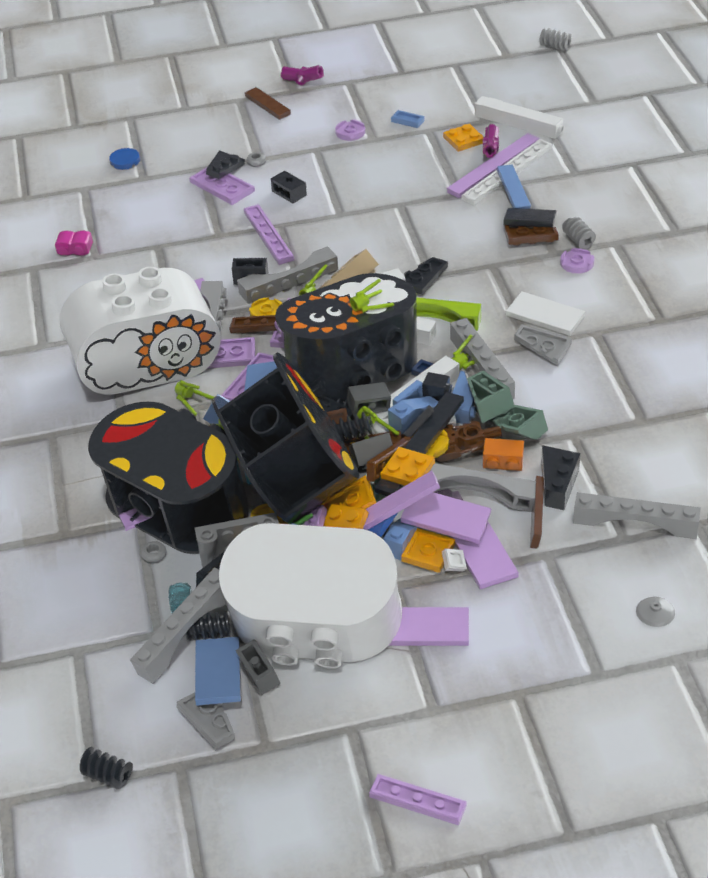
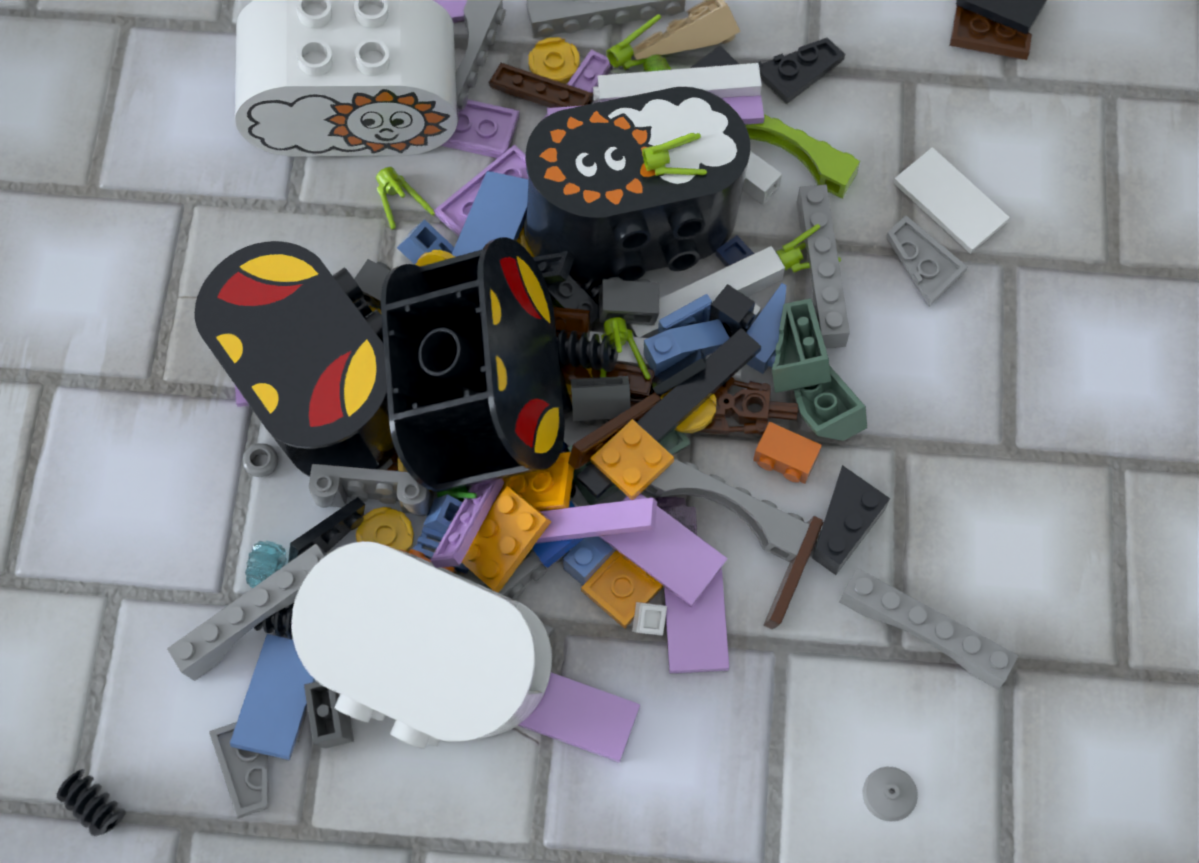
camera: 15 degrees right, 25 degrees up
(577, 260) = (1039, 109): lavender tile -> none
(579, 232) = (1061, 58): light grey piece -> none

